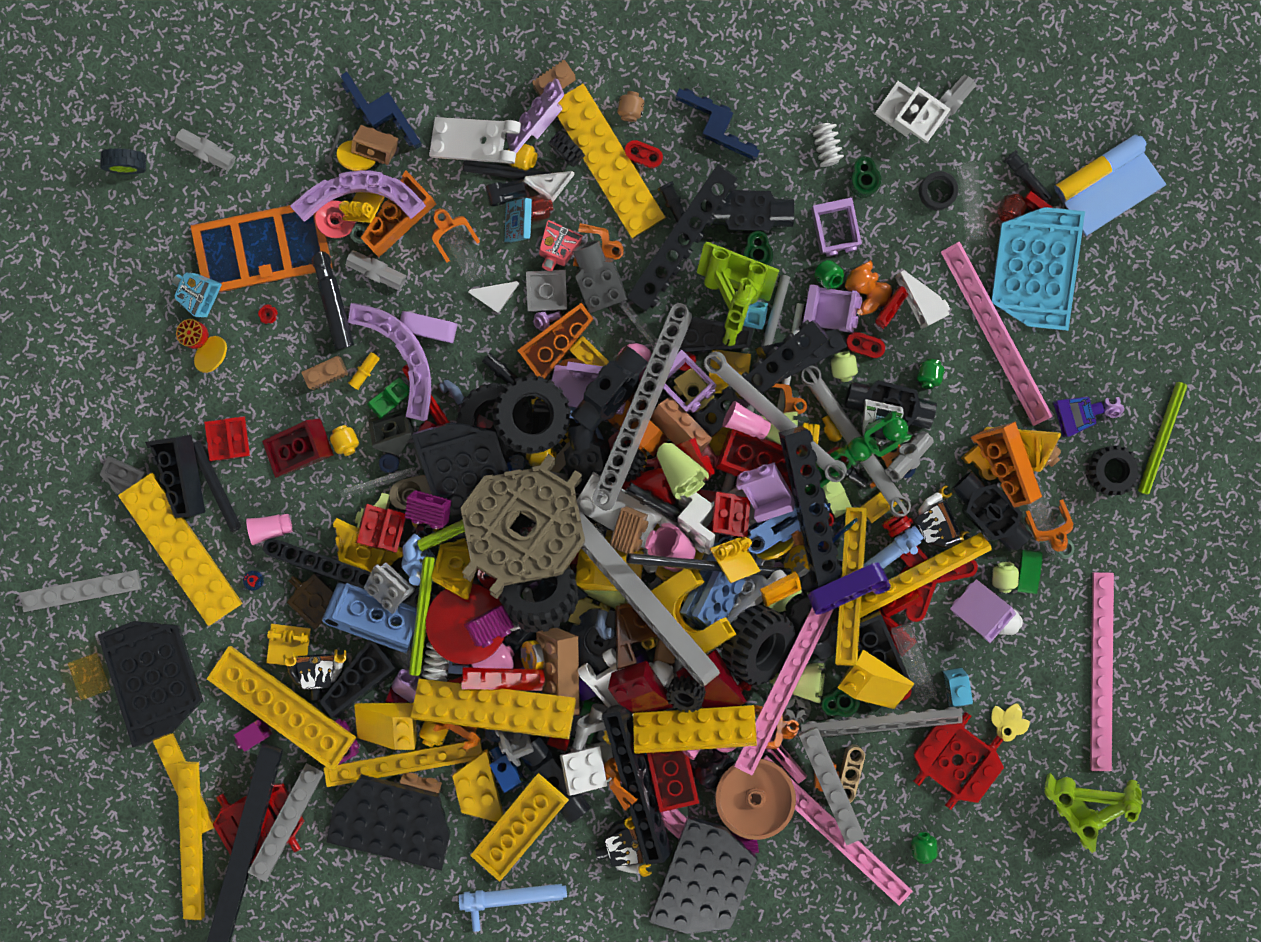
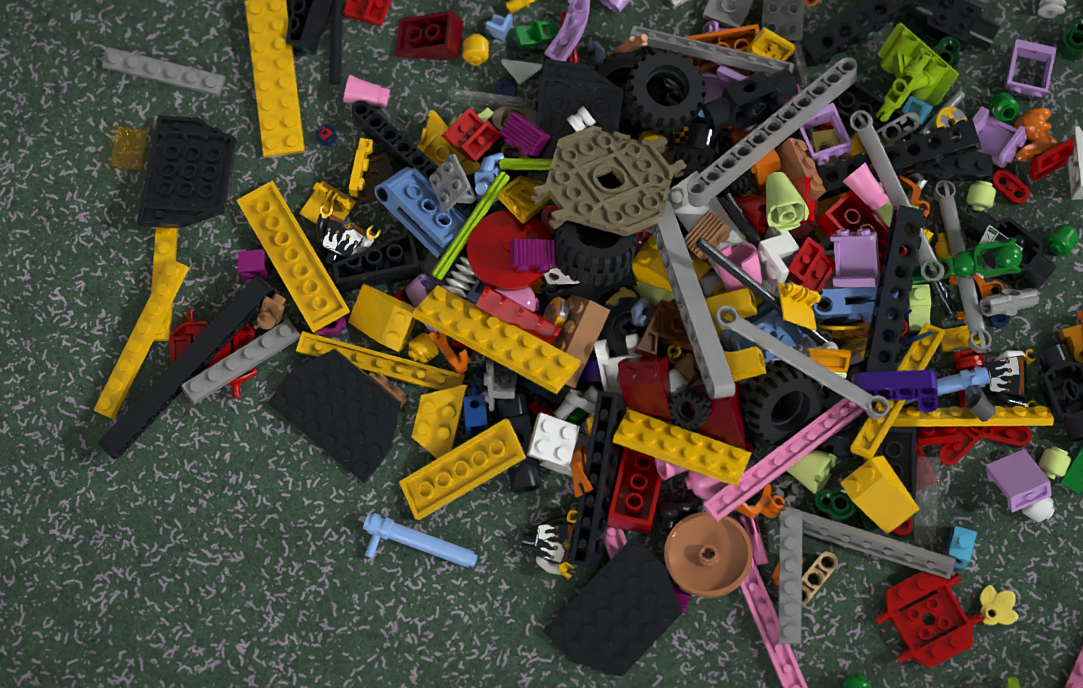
camera: 30 degrees right, 15 degrees down
(289, 768) = (271, 312): none -> medium nougat hips
(298, 599) = (360, 165): none -> yellow hinge
(353, 407) = (499, 26): none -> light blue panel
(471, 476) = (581, 119): none -> white wheel
(486, 377) = (629, 45): none -> nougat bar
(553, 353) = (718, 54): none -> light grey plate
(602, 326) = (770, 45): none -> yellow slope
(745, 341) = (902, 119): none -> light grey beam
(762, 611) = (802, 362): none -> light grey piece
(780, 312) = (948, 114): none -> piece
(923, 566) = (978, 403): none -> dark grey piece

